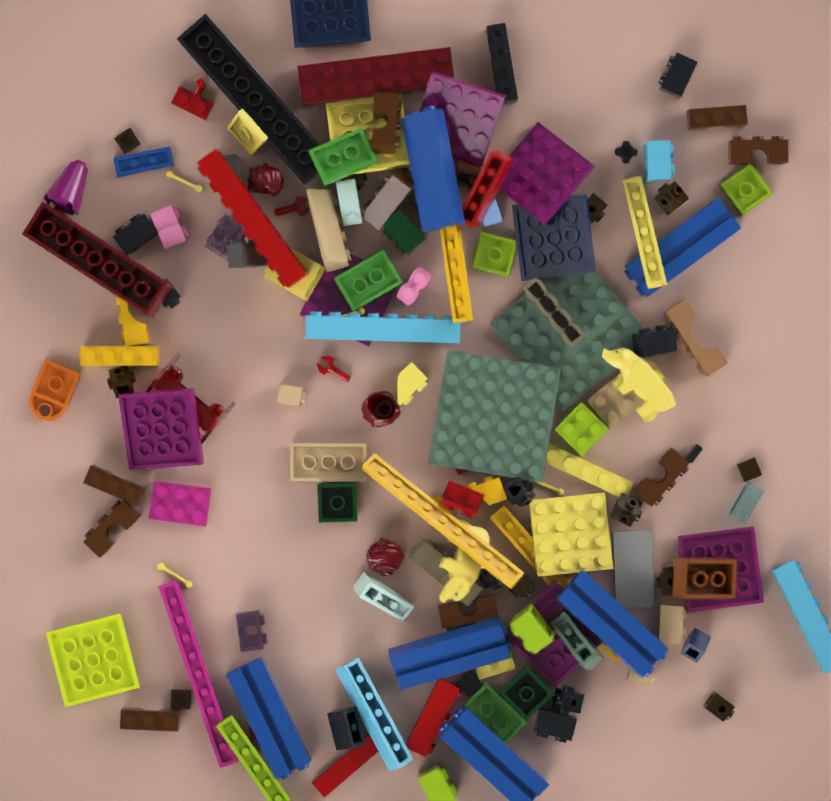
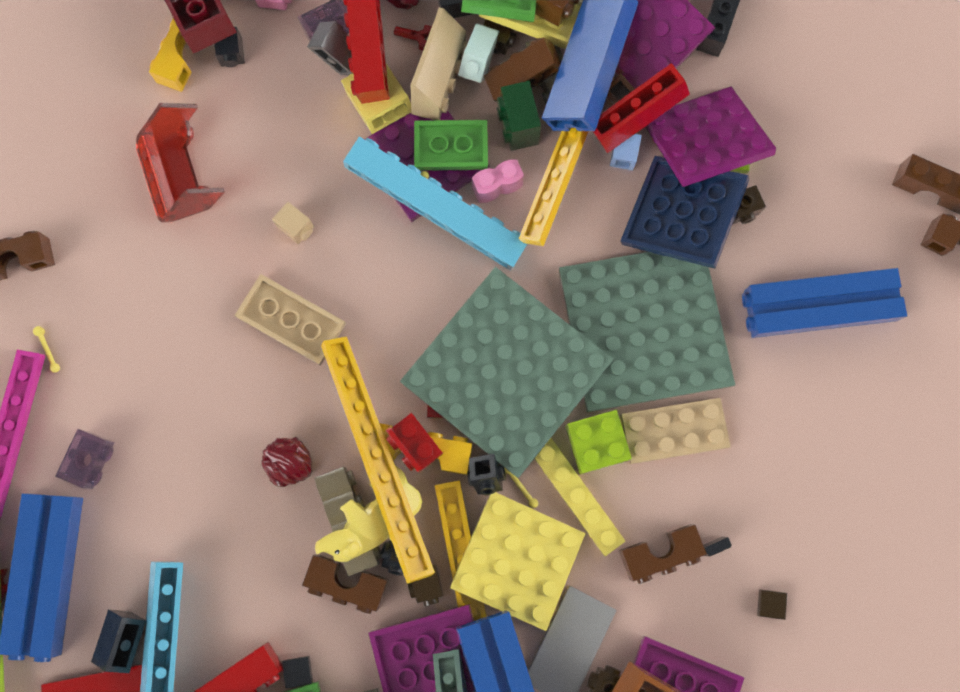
camera: 35 degrees right, 10 degrees down
(53, 388) = (50, 81): orange tile -> none
(114, 485) = (39, 209): reddish brown arch -> none
(119, 356) = (126, 73): yellow arch -> none
(121, 380) = (122, 107): dark brown brick -> none
(161, 429) = (129, 177): magenta plate -> none
(179, 503) = (102, 274): dark pink plate -> none
(333, 369) = (357, 222): red bar -> none
(337, 502) = (271, 367): dark green brick -> none
(380, 409) = (382, 290): dark red hair -> none
(382, 596) = (257, 507): light aqua slope -> none
(408, 382) = (430, 279): light yellow slope -> none
(450, 653) = (293, 621): blue brick -> none
(494, 254) = (606, 198): lime tile -> none
(495, 668) = (339, 666): light yellow plate -> none
(532, 629) = (405, 650): lime brick -> none
(549, 307) = (638, 283): dark tan brick -> none
(626, 157) = (814, 162): black plate -> none
(626, 510) = (600, 569): dark brown brick -> none
(640, 377) = (702, 425): light yellow animal -> none
(644, 232) = (792, 261): light yellow plate -> none
(654, 341) = (738, 388): black brick -> none
(658, 161) = (848, 190): medium azure slope -> none
(671, 197) = (840, 240): dark brown brick -> none
(678, 75) = (913, 118): black brick -> none
(708, 359) = (788, 443): medium nougat arch -> none
(746, 189) = (928, 281): lime tile -> none
(746, 502) = (748, 642): clear light blue tile -> none

